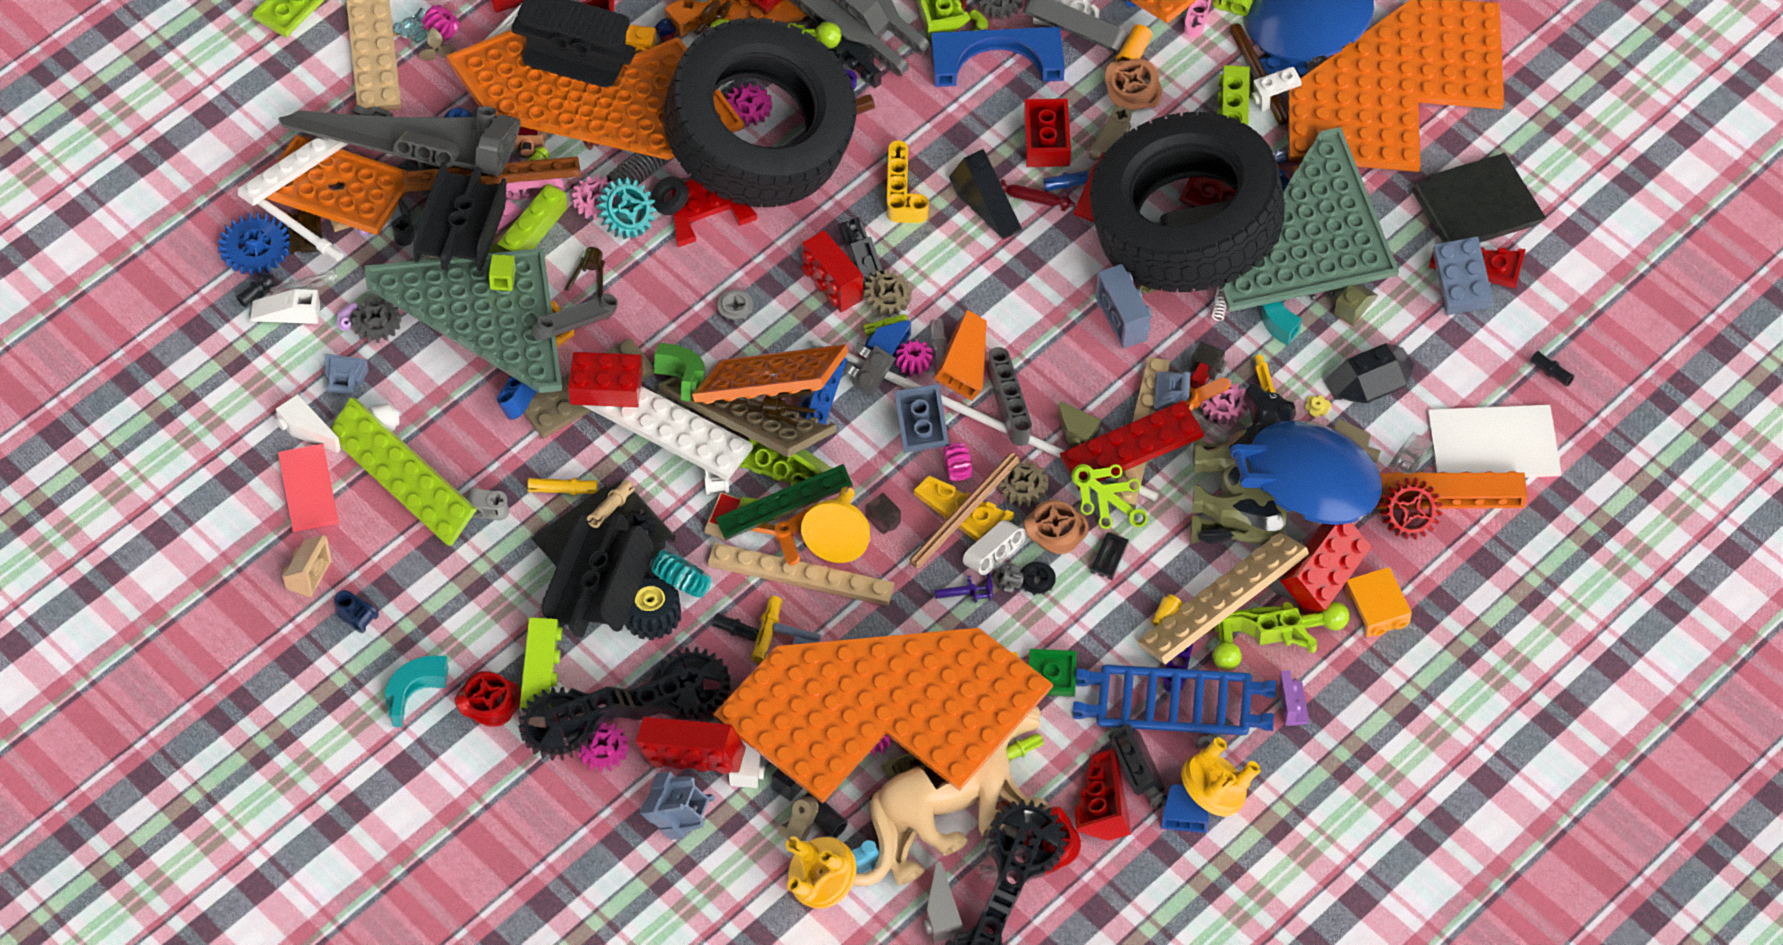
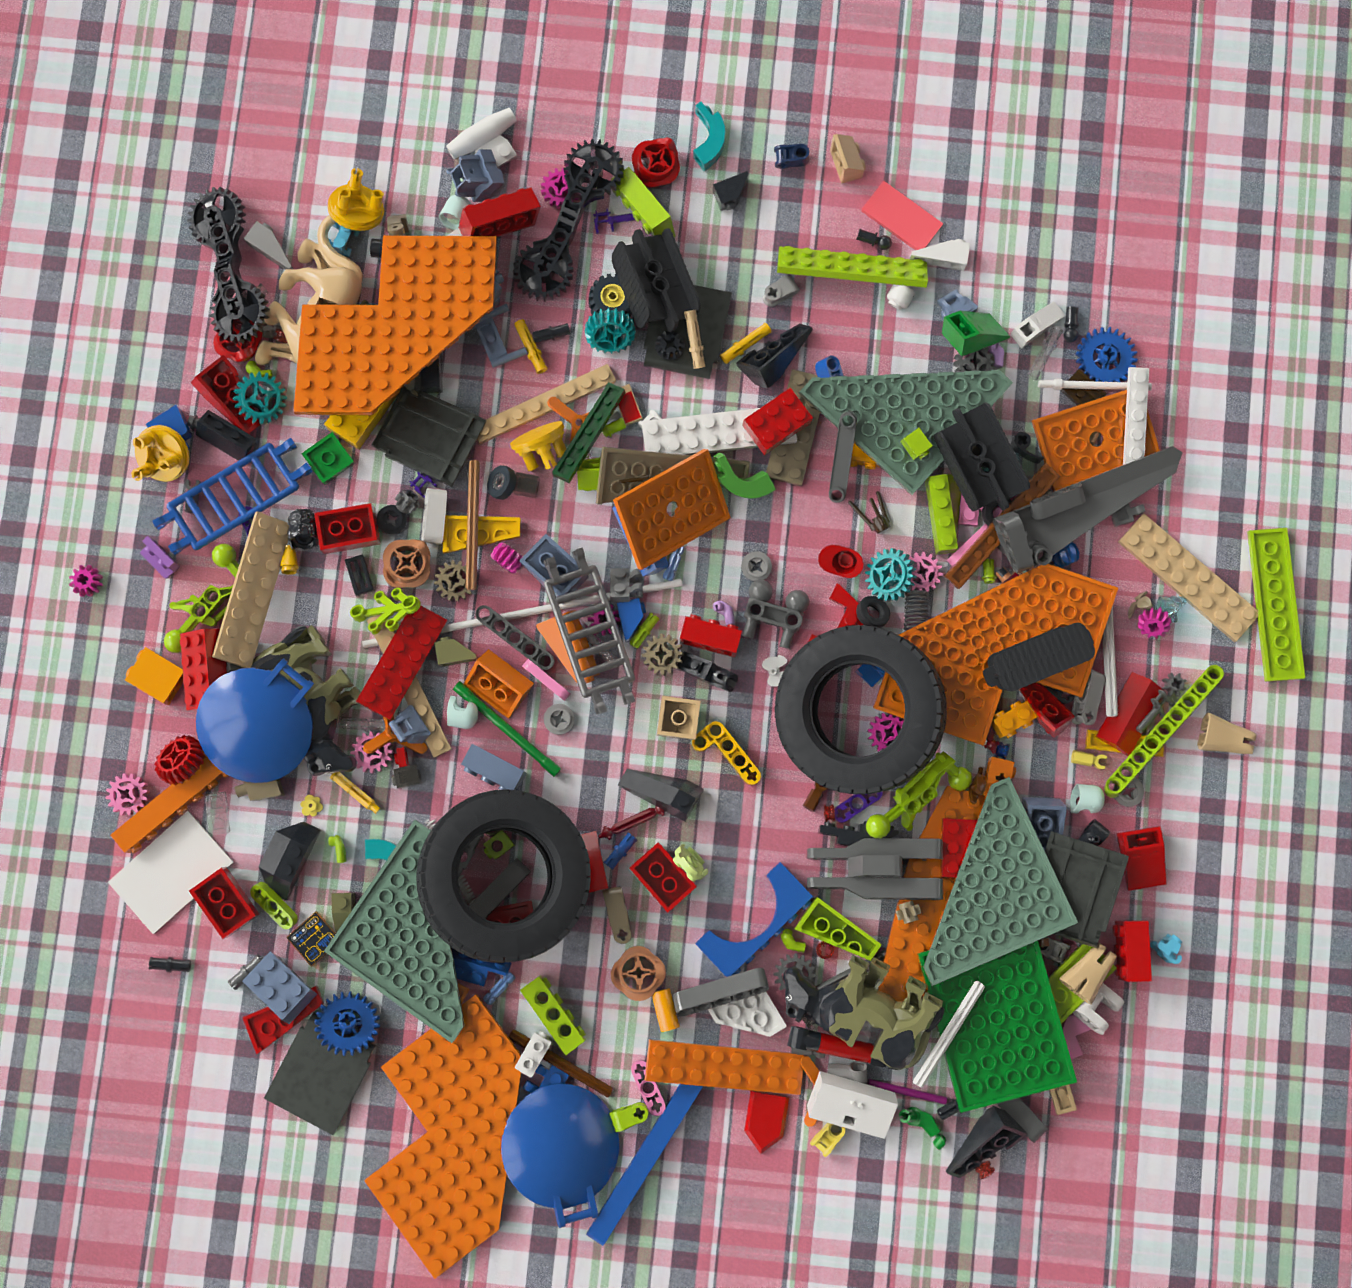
camera: 140 degrees right, 25 degrees up
(351, 334) = (972, 331): none -> green slope
(354, 485) = (883, 242): none -> black pin
(442, 622) = (730, 191): none -> black slope
(549, 455) = (771, 361): none -> black wedge
(575, 683) = (611, 219): none -> dark purple piece
(632, 846) = (486, 135): none -> white plate
(655, 249) = (840, 561): none -> red piece
(726, 796) = (454, 207): none -> light aqua helmet
(763, 264) = (796, 603): none -> dark grey piece
(796, 291) = (725, 610): none -> lavender arm
(797, 224) = (772, 665): none -> white piece
(859, 85) = (829, 813): none -> clear red bush
(907, 538) = (501, 482): none -> black bush
(922, 234) = (678, 718): none -> tan slope
(930, 393) = (594, 692): none -> flat silver bar
(931, 601) = (428, 435): none -> pearl dark grey piece
(1010, 343) = (546, 679): none -> bright pink beam
(1014, 124) = (690, 862): none -> yellowish green plate
(1030, 306) = (555, 710): none -> light grey gear
(1052, 797) = (251, 367): none -> lime arm
(1057, 373) = (498, 683): none -> orange slope
(1078, 766) = (252, 401): none -> teal gear
(1086, 592) = (347, 528): none -> red brick
(1094, 386) = (549, 765): none -> green piece
(1114, 371) = (461, 717): none -> light aqua helmet
(1130, 622) = (302, 529): none -> black hair
(1318, 350) = (340, 848): none -> lime arm
(1373, 732) = (79, 578): none -> dark pink gear
(1401, 302) = (312, 938): none -> black tile
(1415, 205) = (366, 1020): none -> blue gear
(1415, 334) = (281, 905): none -> lime beam
(1461, 374) = (224, 902): none -> red brick
(1484, 316) = (237, 979): none -> dark grey pin
(1487, 522) = (122, 799): none -> bright pink gear

